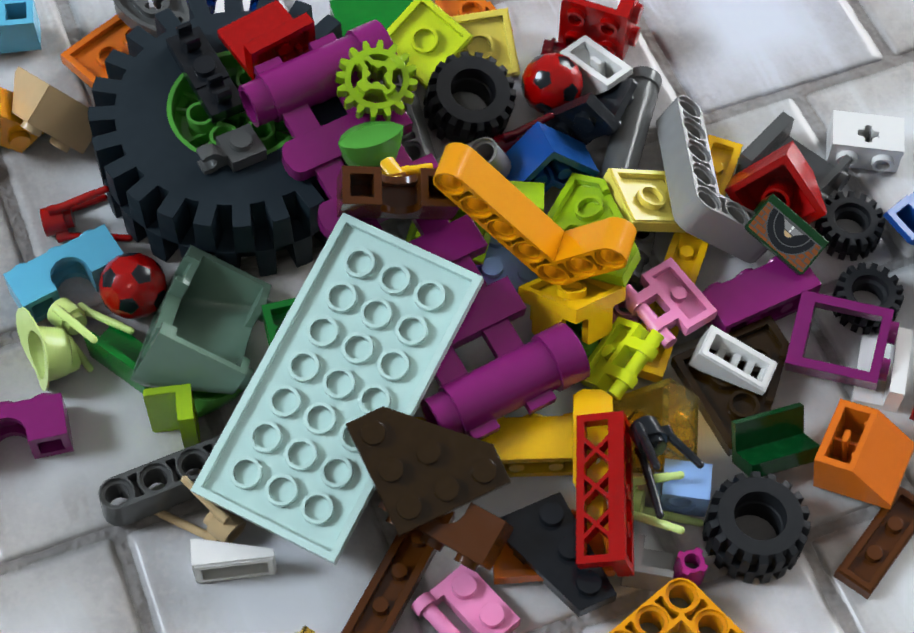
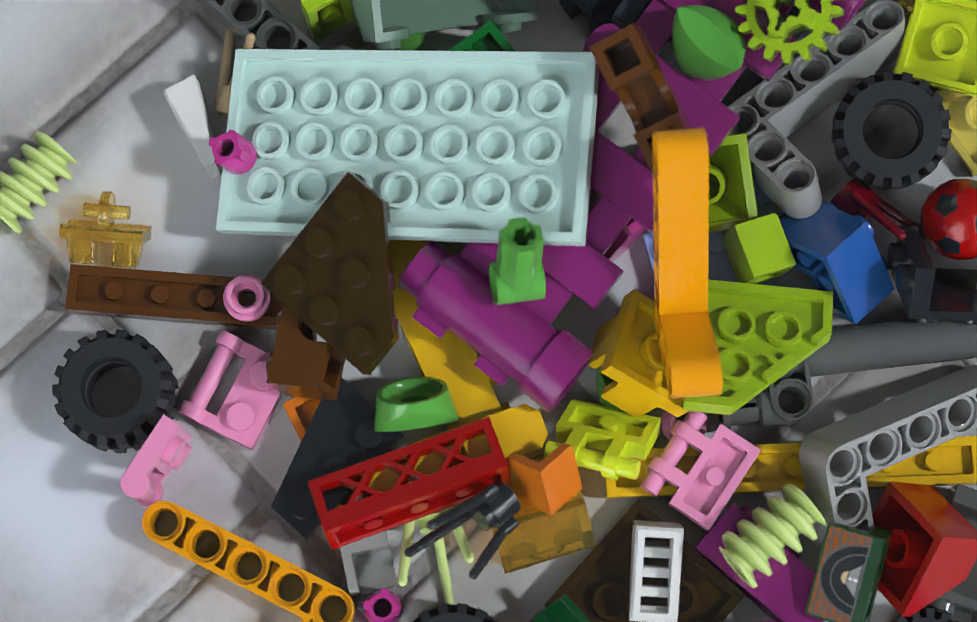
camera: 70 degrees right, 20 degrees up
(288, 523) = (242, 157): none -> dark pink hose
(393, 169) = (684, 85): yellow hand -> none
(395, 557) = (236, 288): none -> bright pink plate
(480, 330) = (518, 268): none -> bright green piece
(542, 468) = (413, 404): none -> bright green piece
(642, 199) = (830, 385): light yellow tile -> none
(642, 397) = (545, 483): none -> orange panel
(688, 494) = (490, 580): light blue brick -> none
(739, 266) = (771, 534): none -> yellowish green piece

